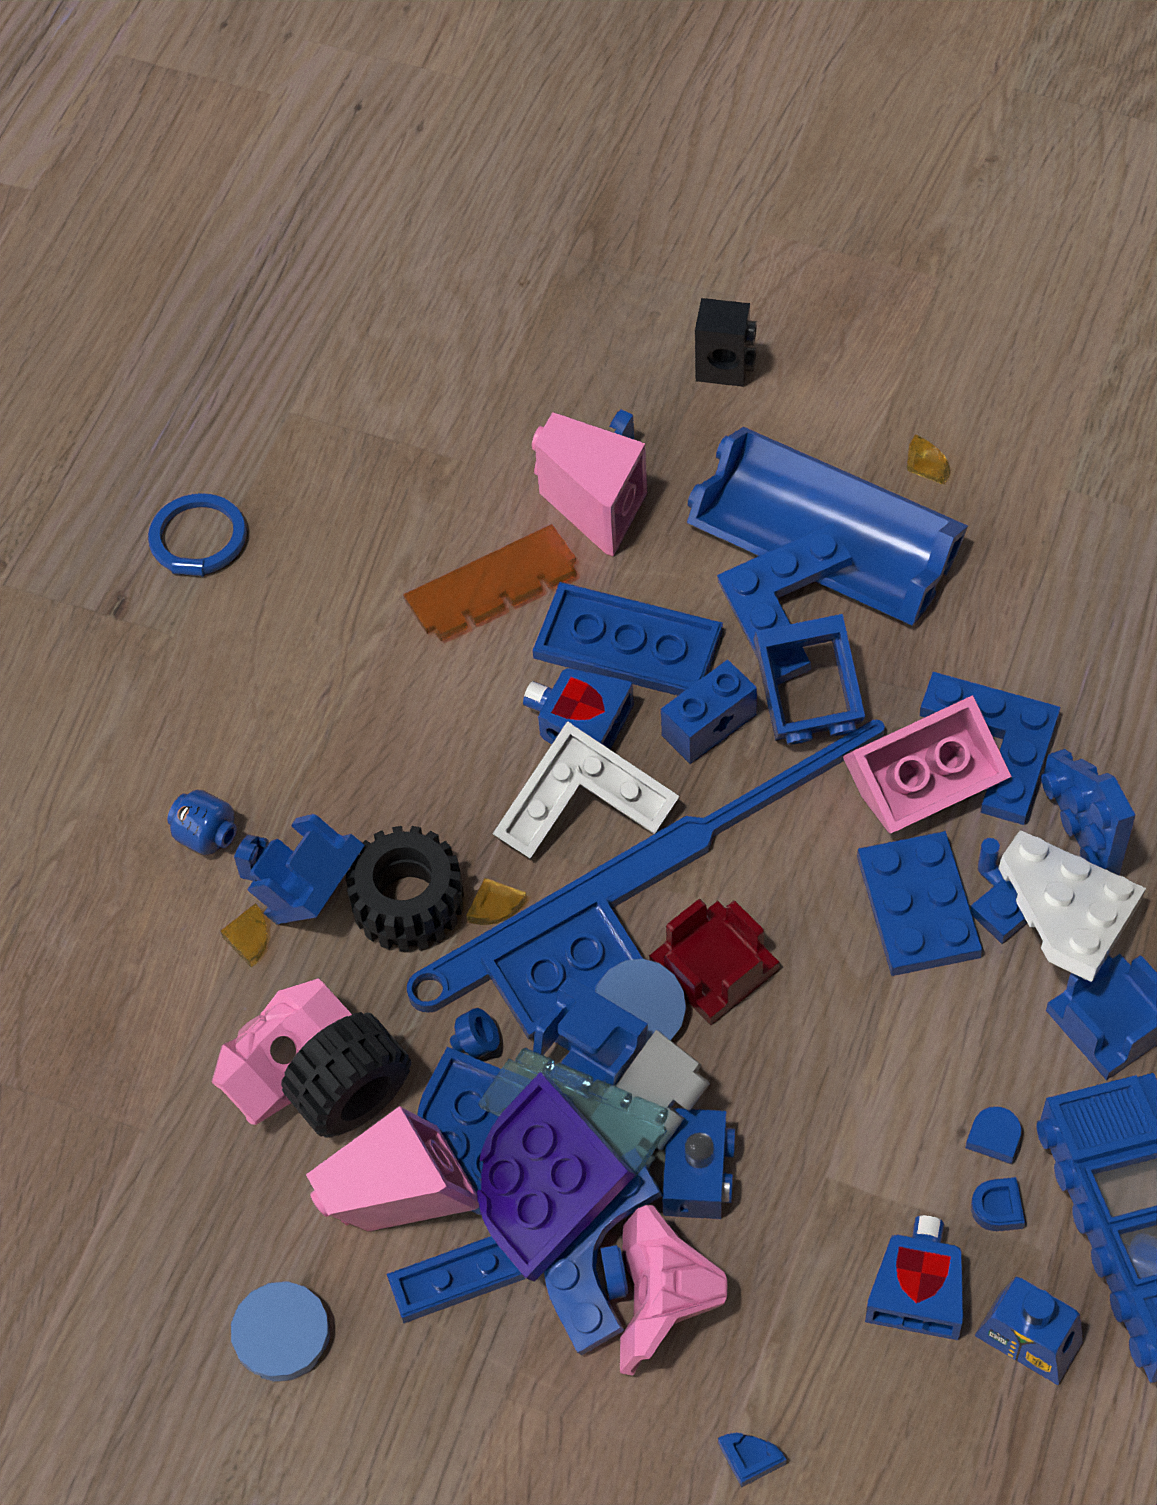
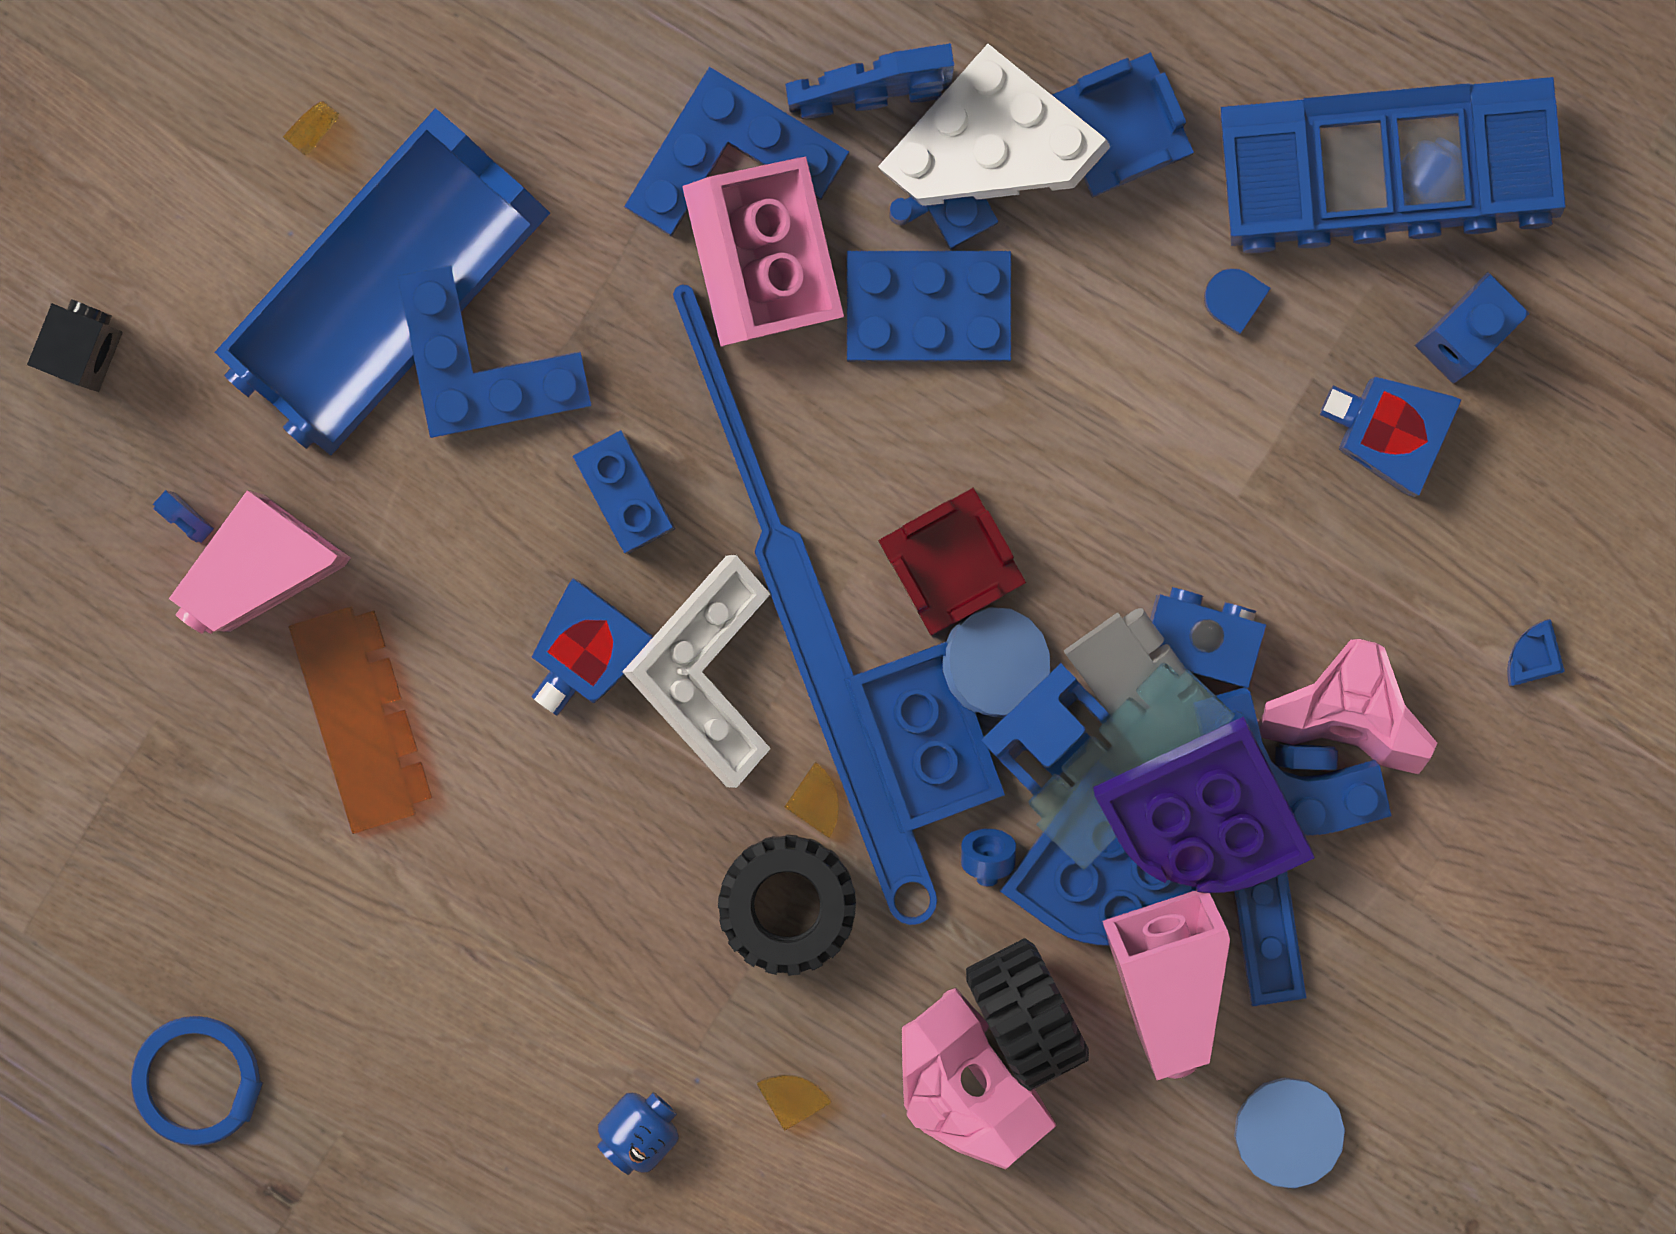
camera: 85 degrees left, 30 degrees up
(248, 854) = (689, 1077): blue tile -> none
(302, 880) = (748, 1019): blue panel -> none
(626, 639) = (486, 567): blue tile -> none
(802, 635) = (564, 361): blue window -> none
(998, 1205) = (1316, 318): blue tile -> none

